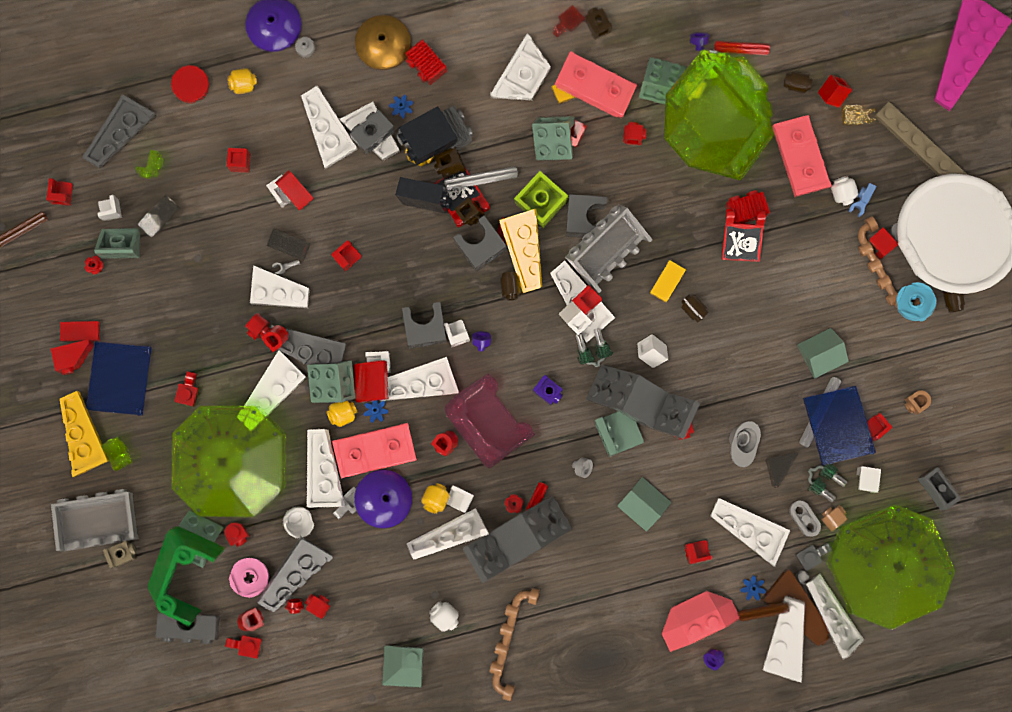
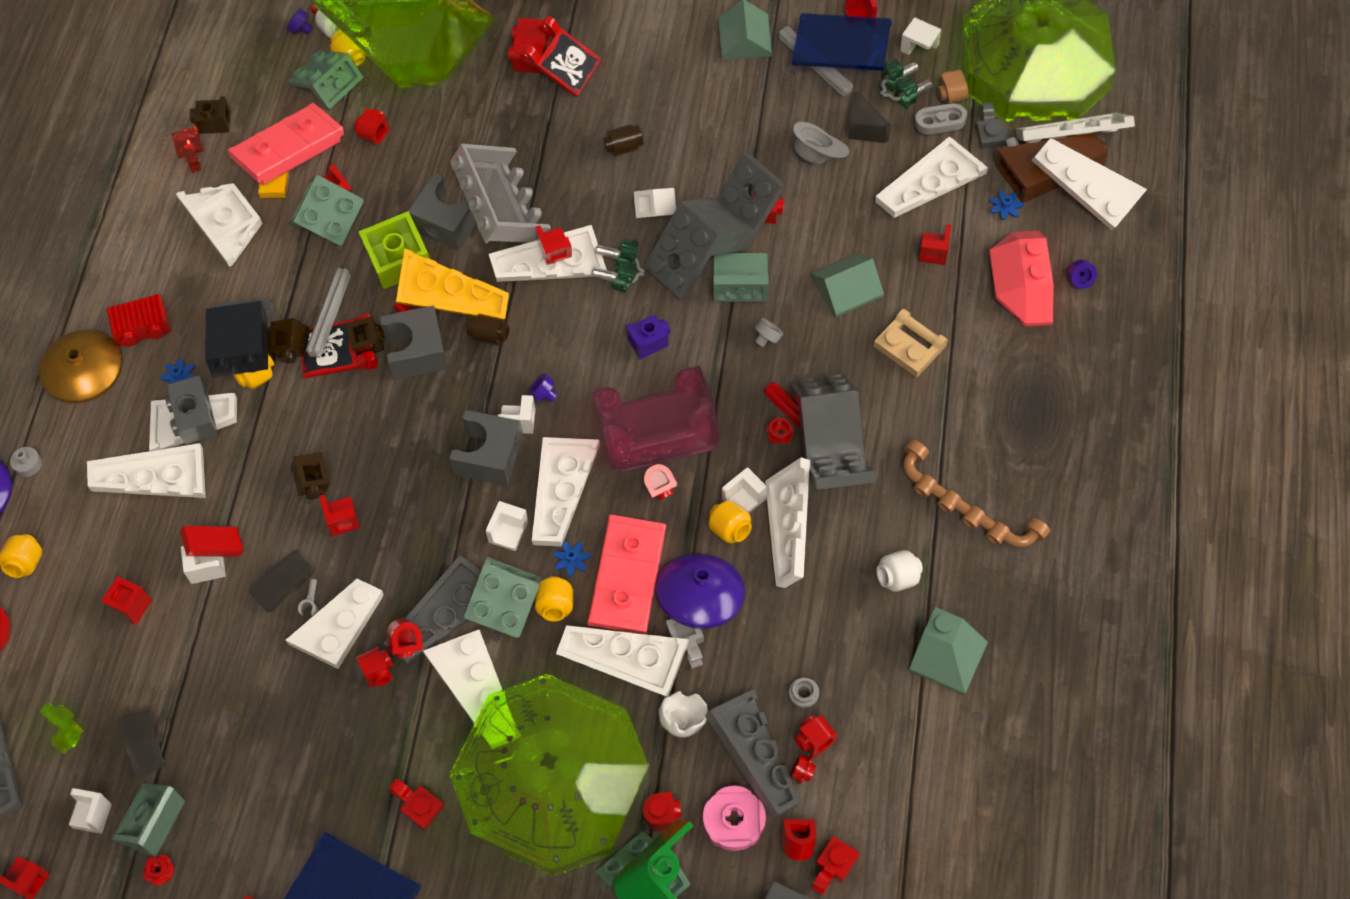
camera: 65 degrees left, 20 degrees down
(337, 590) = (804, 684): none -> light grey plate
(370, 225) = (311, 467): none -> dark brown brick
(371, 381) = (529, 541): red slope -> none
(423, 195) = (312, 378): black brick -> none
(575, 318) = (569, 267): white panel -> none
(608, 562) = (905, 349): none -> tan plate
(667, 281) = (575, 159): yellow tile -> none
(764, 611) = (1042, 191): reddish brown axle -> none

